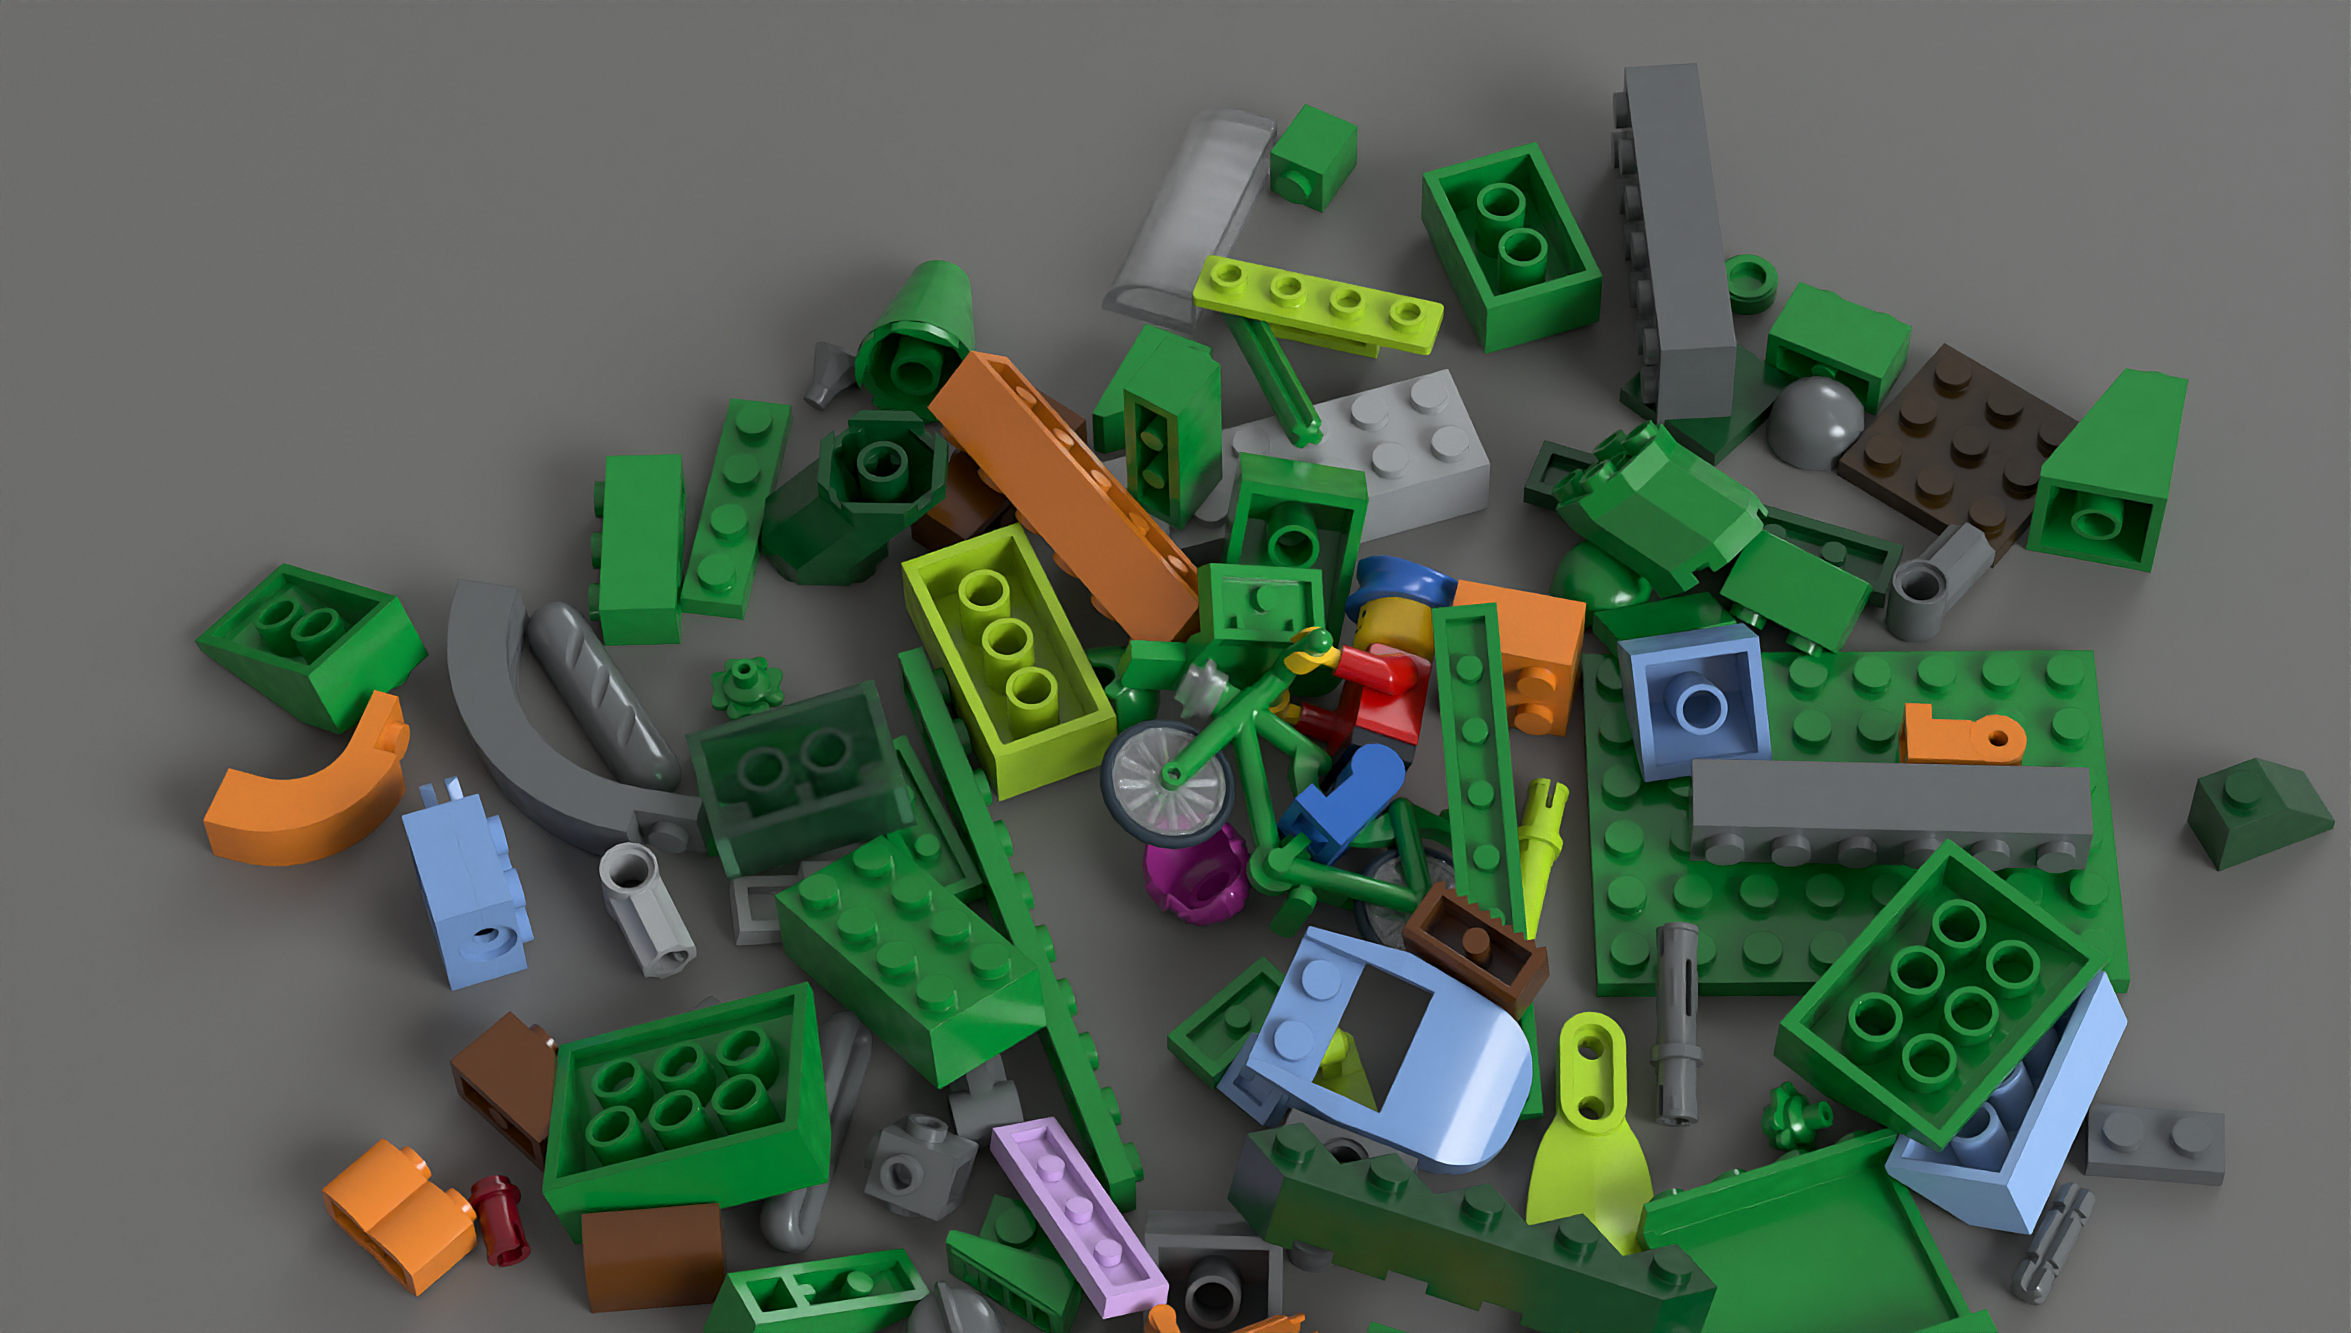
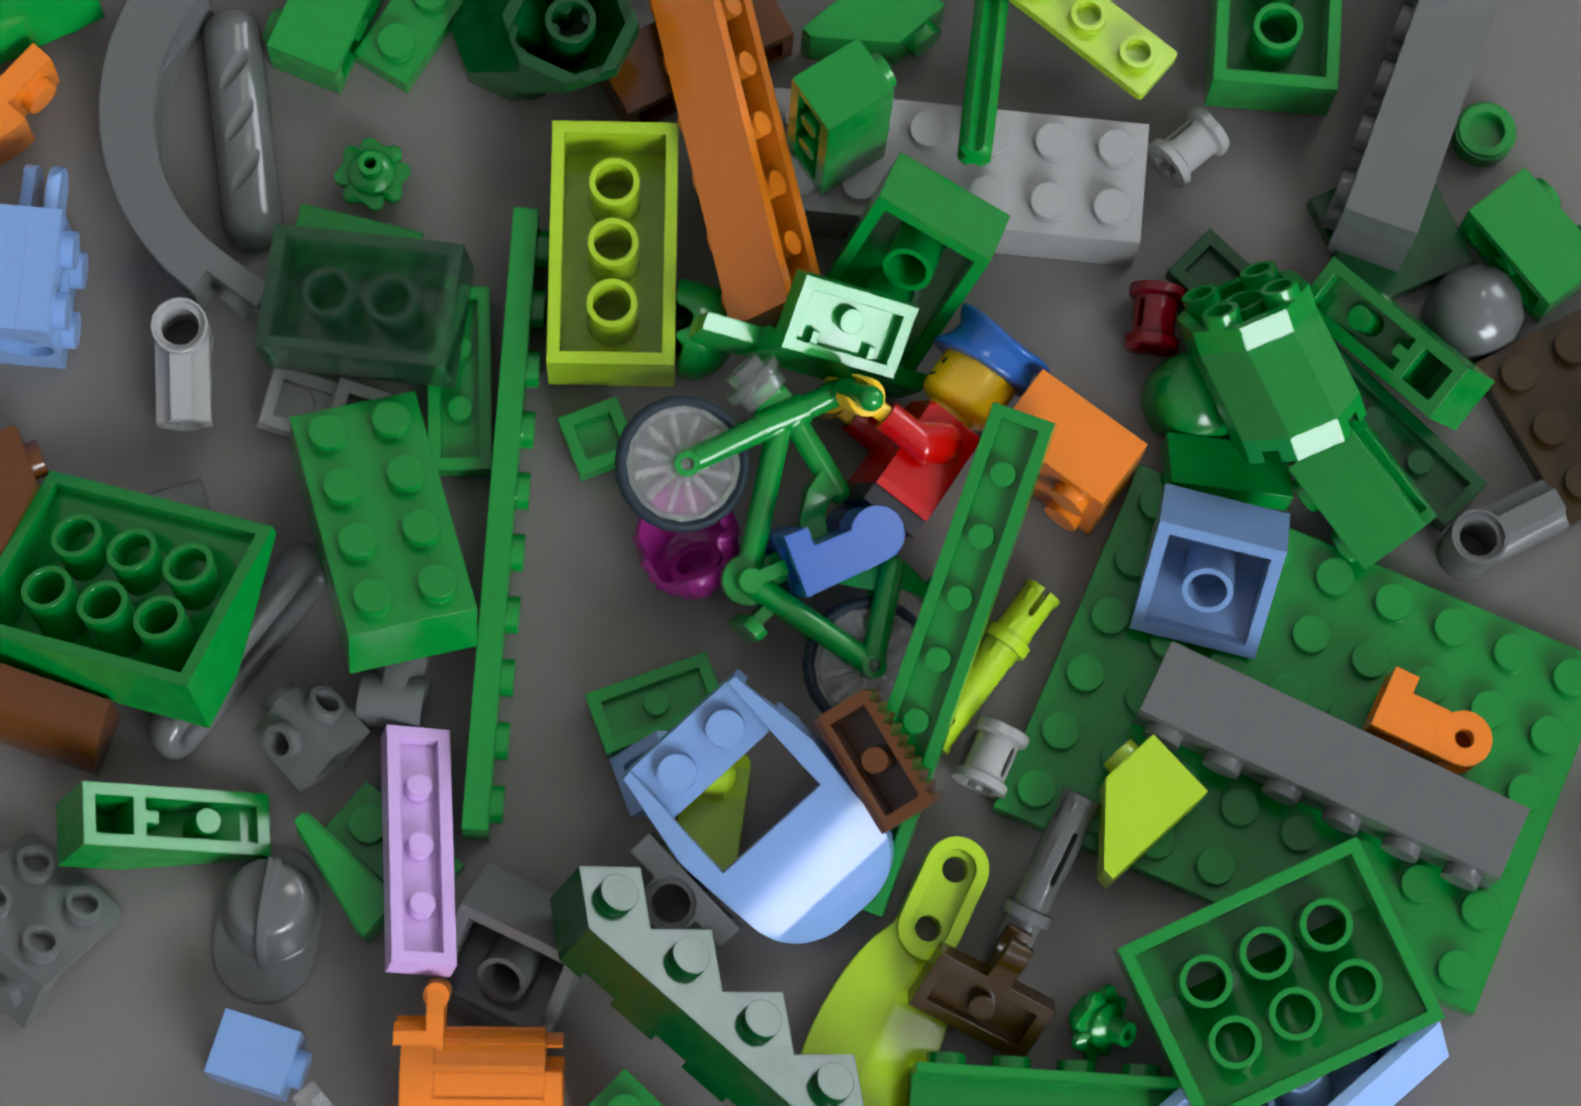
camera: 15 degrees right, 20 degrees up
(1070, 824) = (593, 437): none -> green plate
(1494, 379) = (1188, 147): none -> light grey bush
(1531, 532) = (1153, 318): none -> dark red bush
(1574, 943) = (990, 757): none -> light grey bush
(1674, 1138) = (985, 997): none -> dark brown plate
(1736, 907) = (1140, 804): none -> lime slope
(1779, 467) = (1398, 346): none -> green slope

